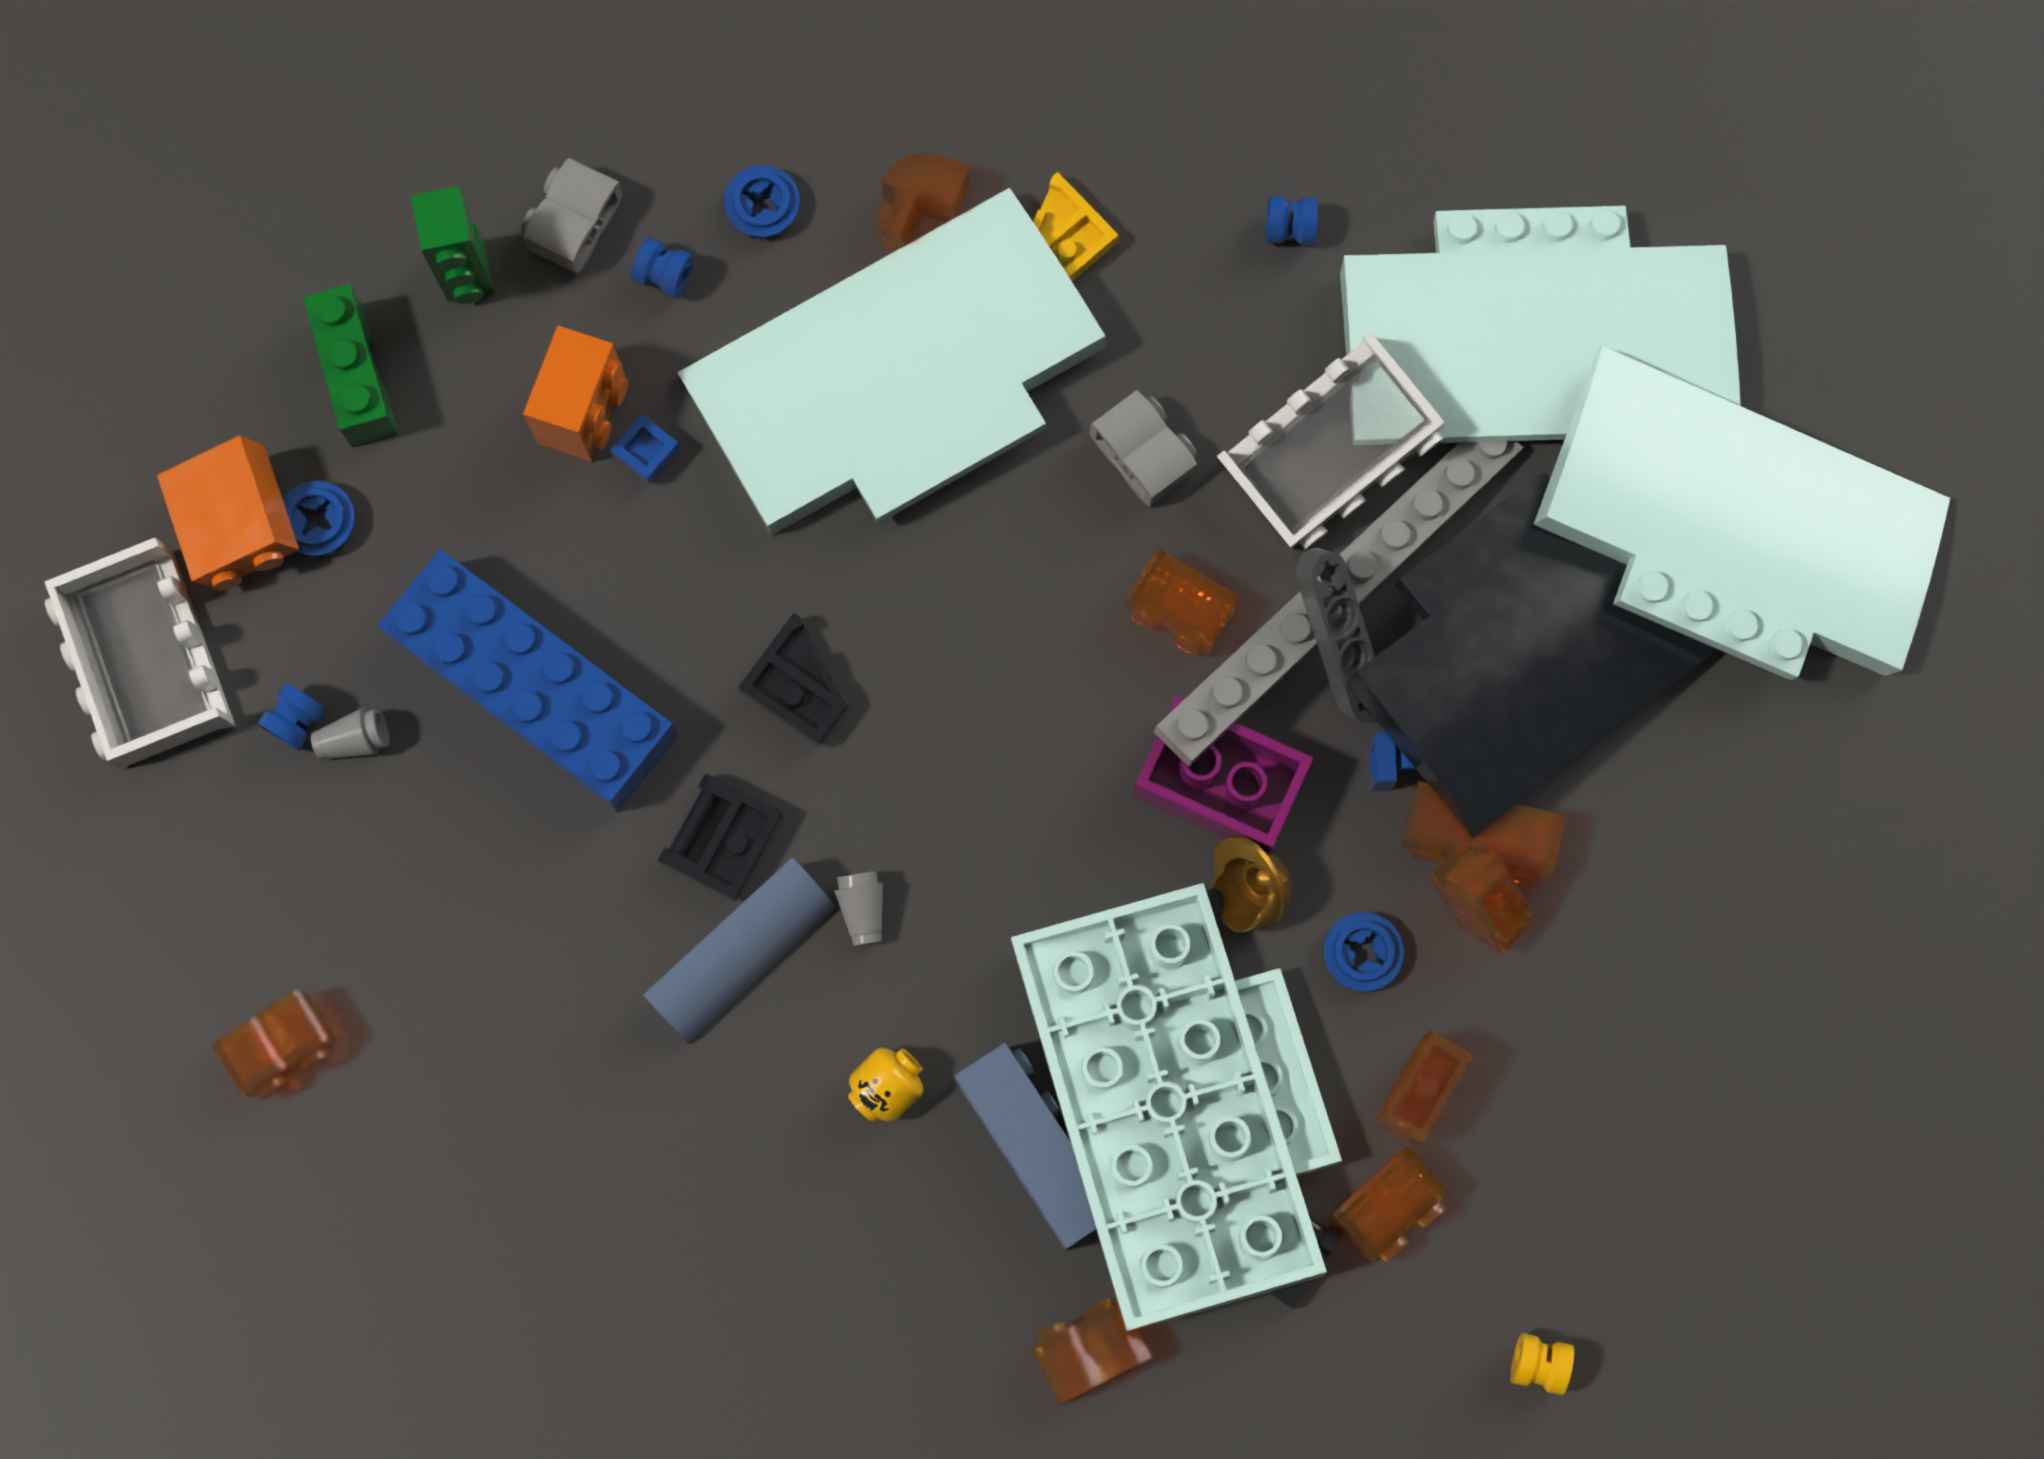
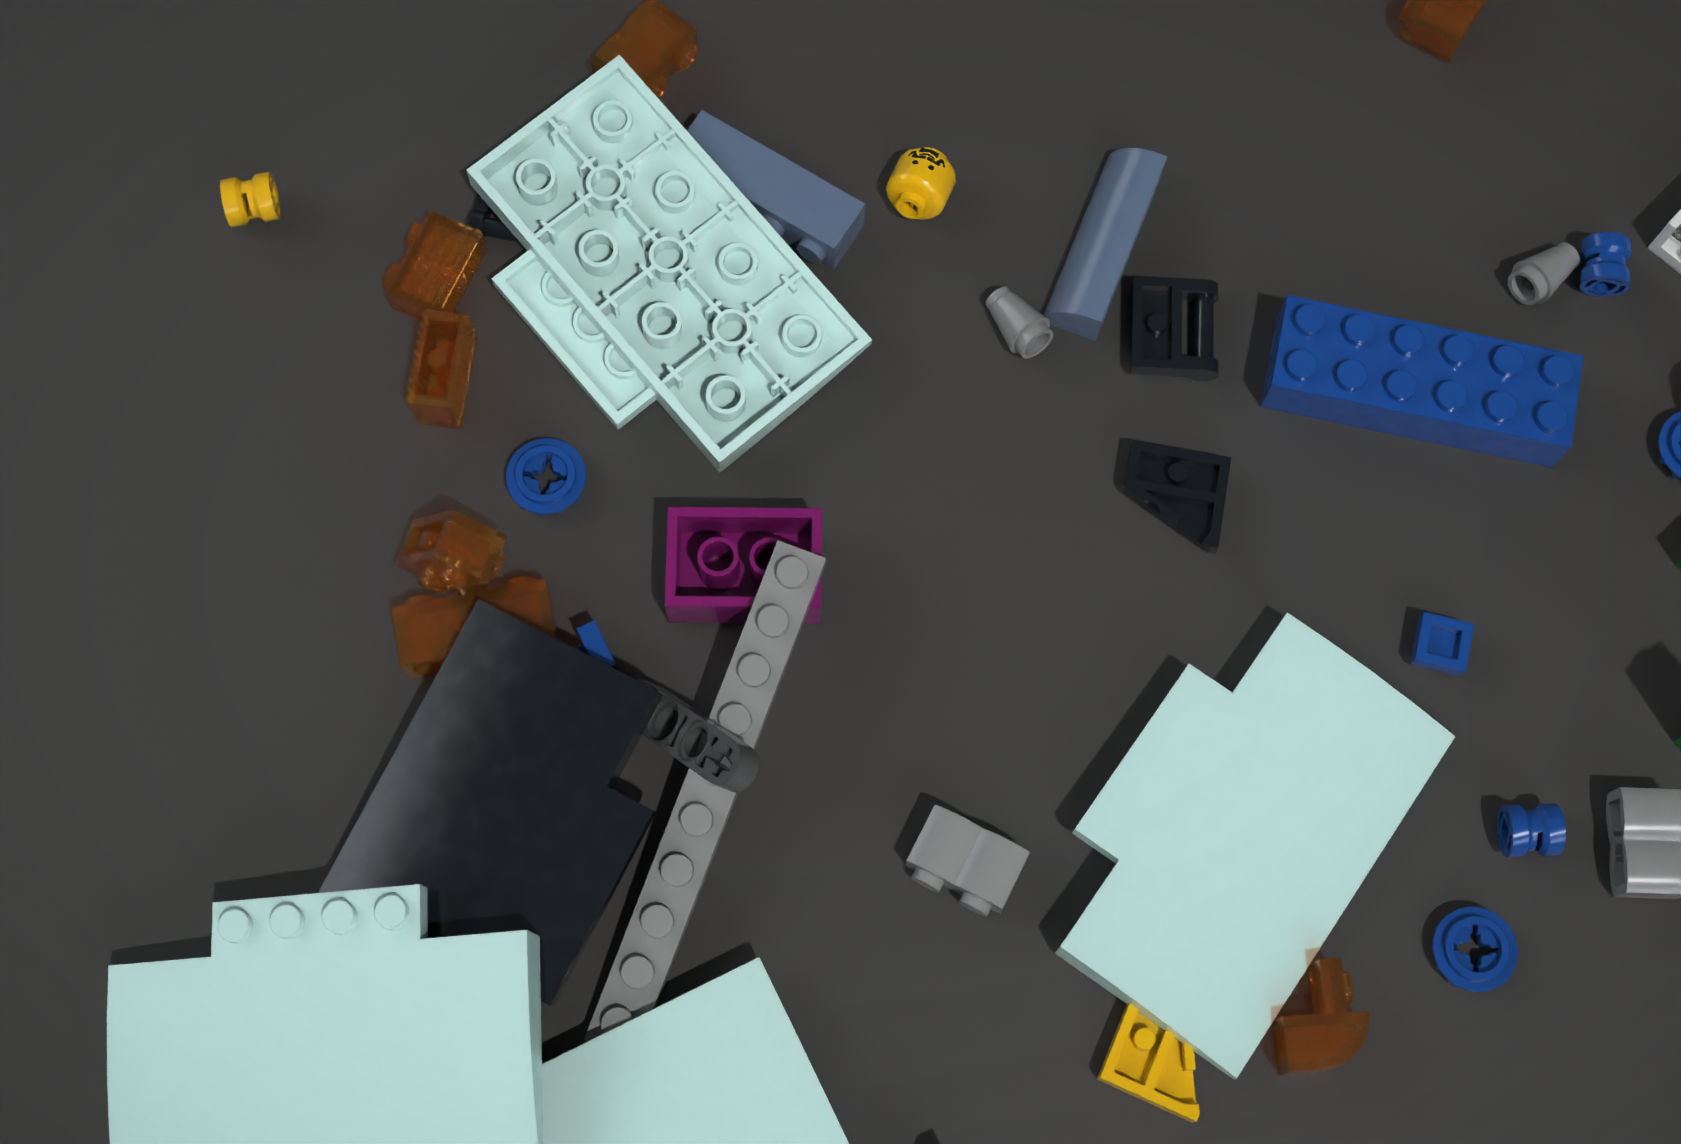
camera: 155 degrees right, 5 degrees down
(576, 394) = (1538, 651): orange brick -> none
(1182, 604) = (857, 719): clear orange brick -> none
(1251, 884) = (668, 477): pearl gold piece -> none
(1334, 443) = (779, 938): clear window -> none

